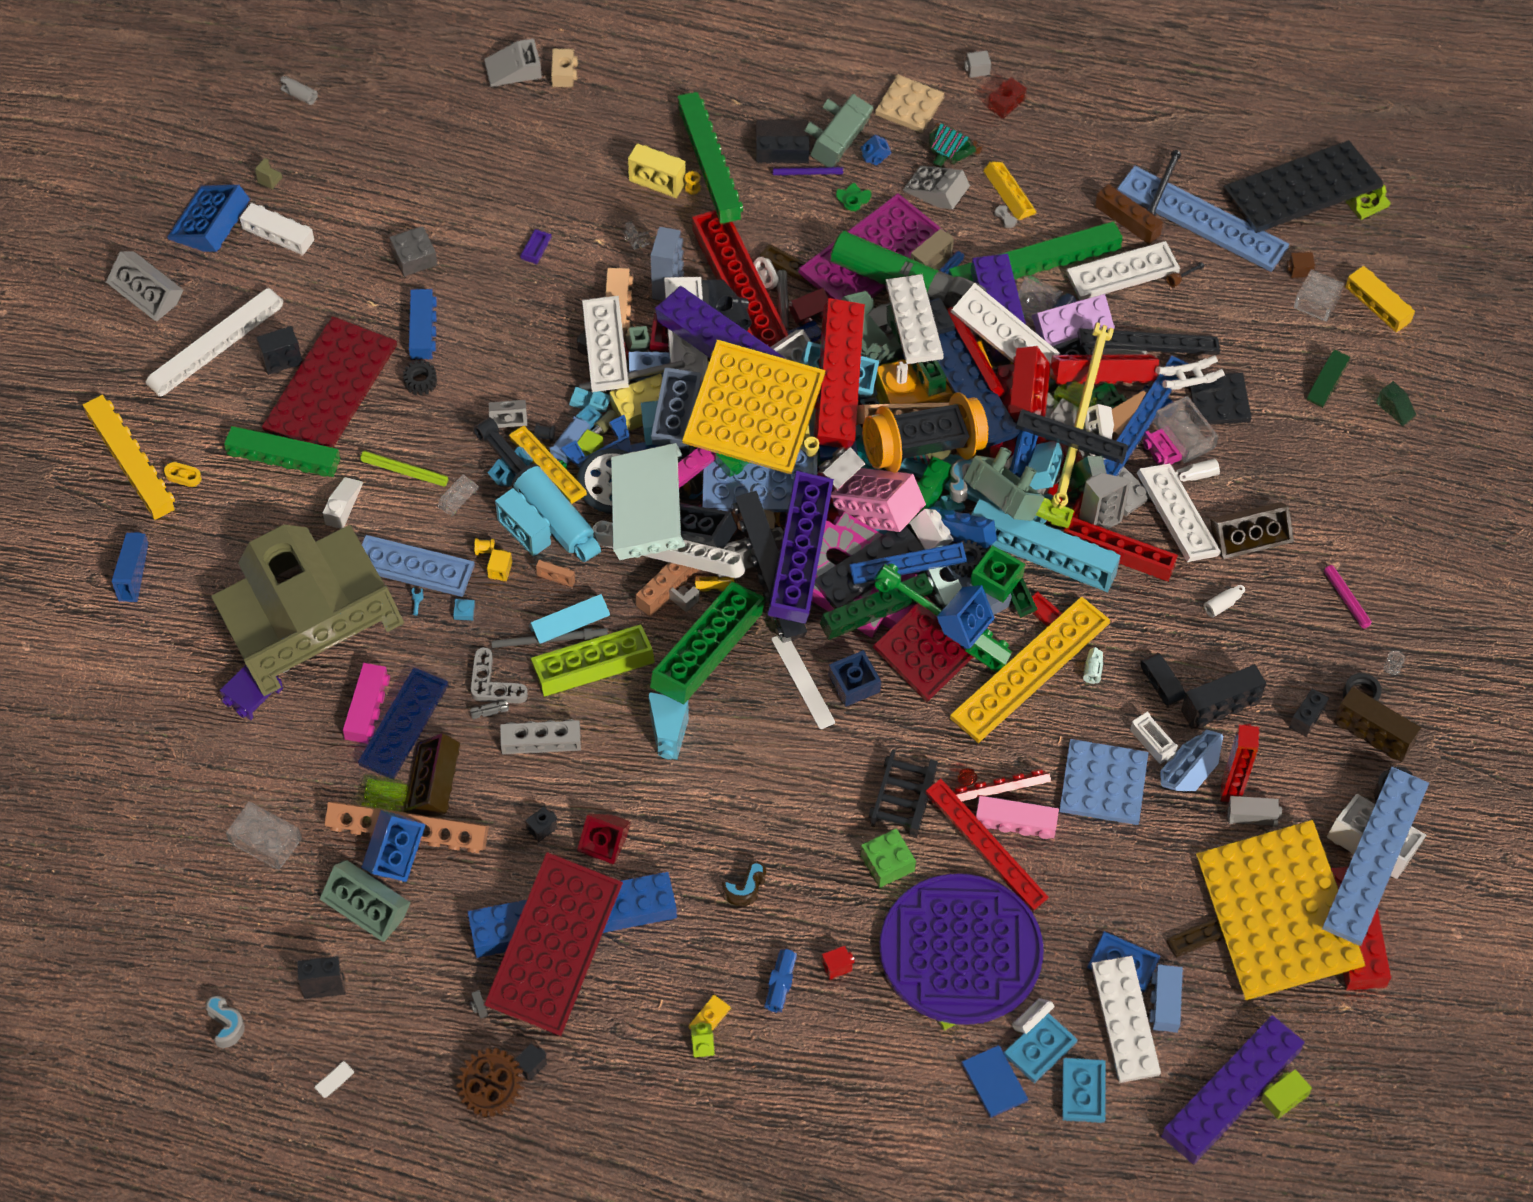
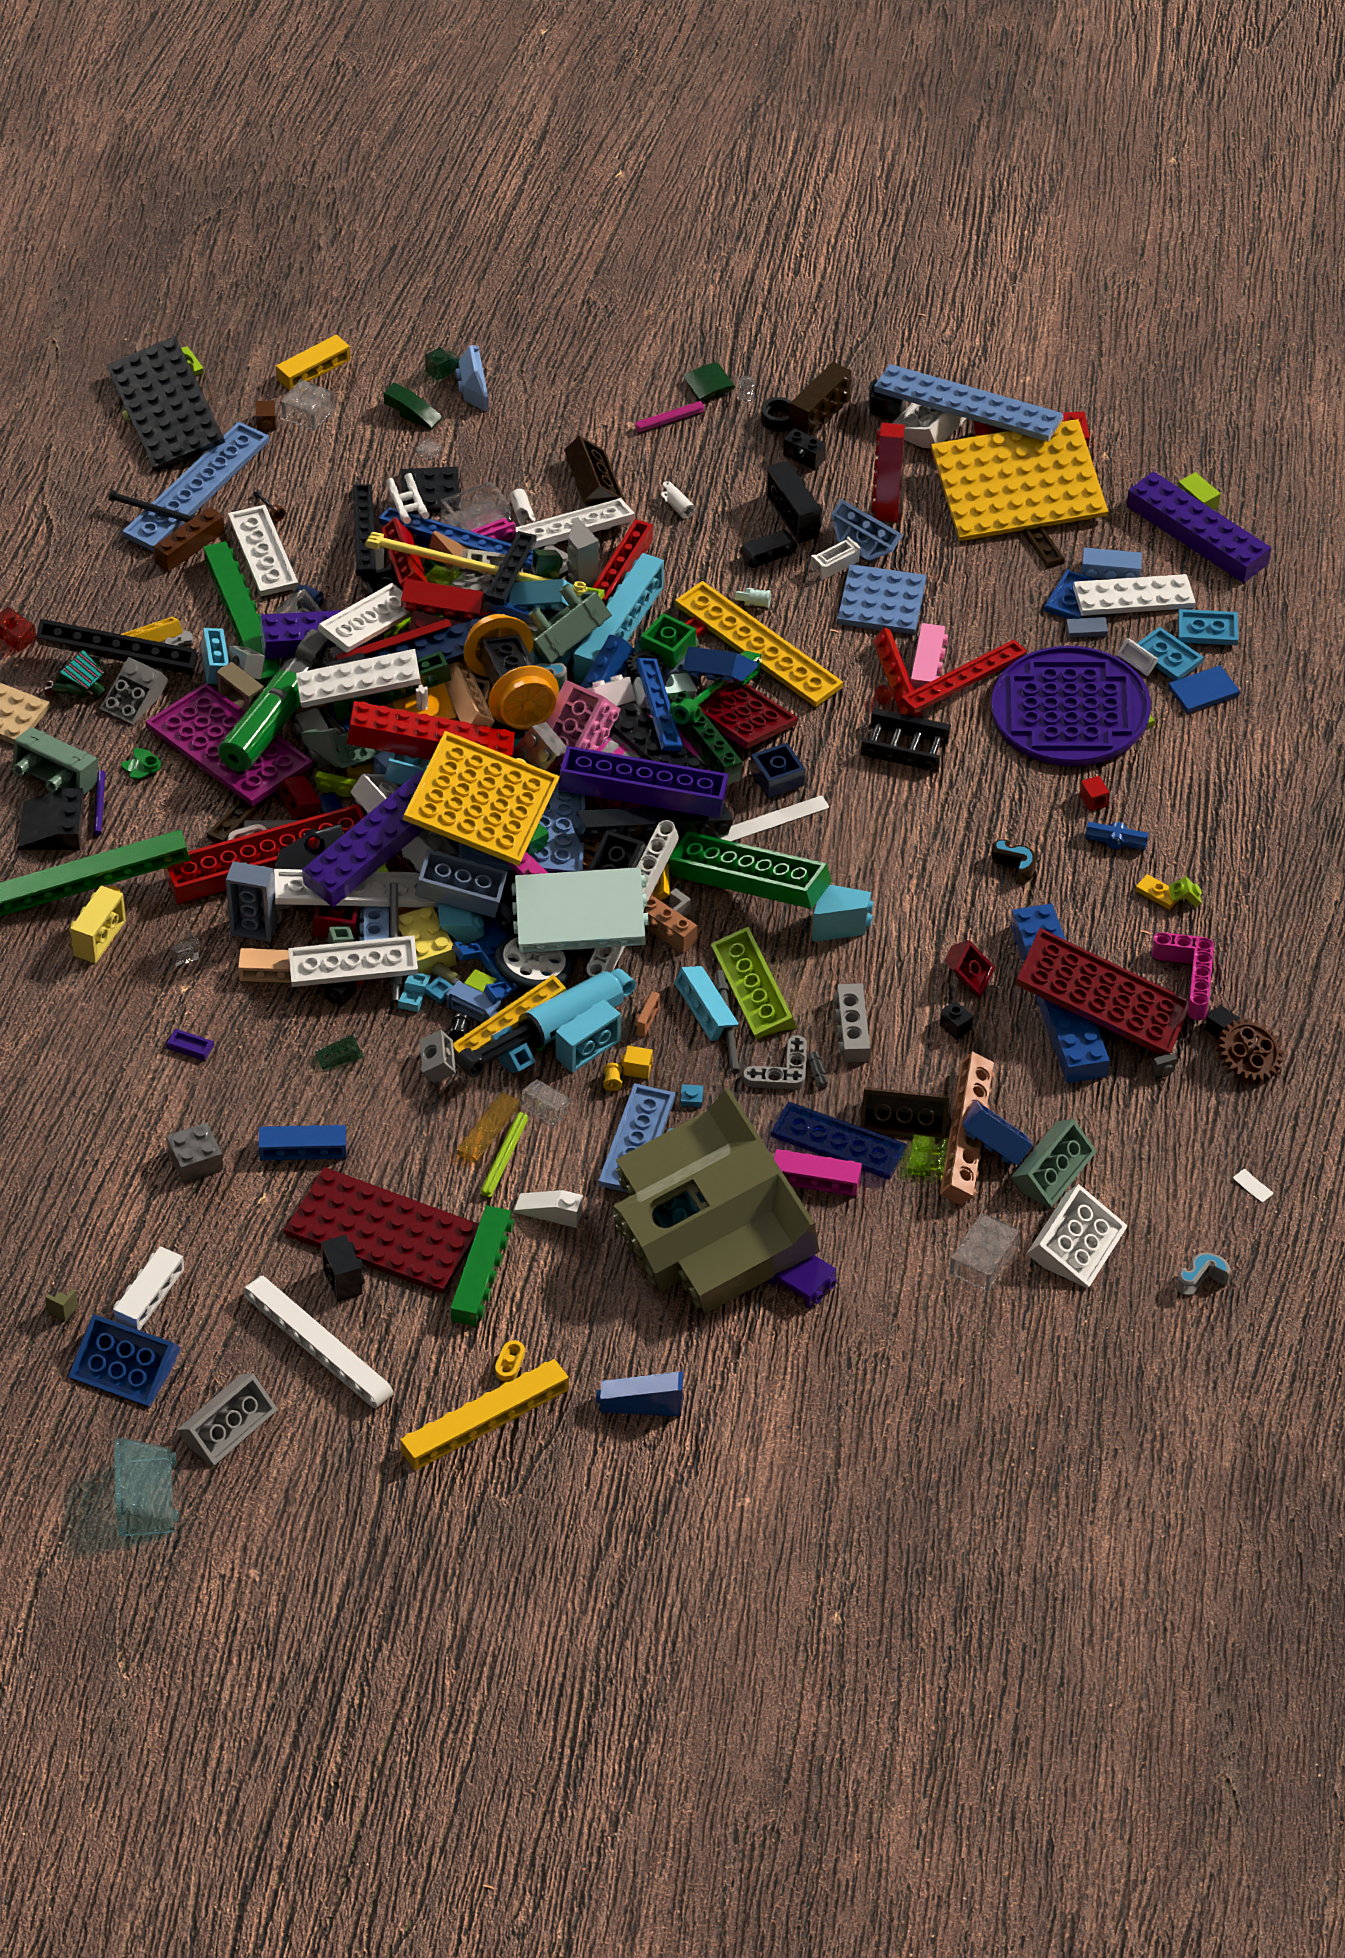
camera: 90 degrees left, 10 degrees down
(81, 228) = (144, 1488): none -> clear light blue windscreen
(275, 915) = (1077, 1237): none -> white slope
(321, 977) = (1155, 1188): black panel -> none
(420, 386) = (379, 1133): black tyre -> none
(435, 457) = (488, 1127): none -> clear yellow tile
(522, 350) = (347, 1056): none -> clear green slope
(594, 1039) = (1192, 951): none -> dark pink beam
(875, 150) = (83, 730): blue brick -> none
(888, 858) = (979, 752): bright green brick -> none
(963, 254) = (247, 660): none -> light grey brick
(977, 236) = (213, 653): none -> medium azure brick
(979, 164) = (116, 646): none -> black brick
(1064, 321) = (334, 579): lavender brick -> none
(1077, 972) = (1086, 627): none -> sand blue tile
(1254, 811) = (912, 495): light grey brick -> none
(1275, 396) = (428, 449): none -> clear tile
(1377, 427) = (472, 378): none -> light blue wedge
(1403, 630) = (709, 381): none -> dark green slope

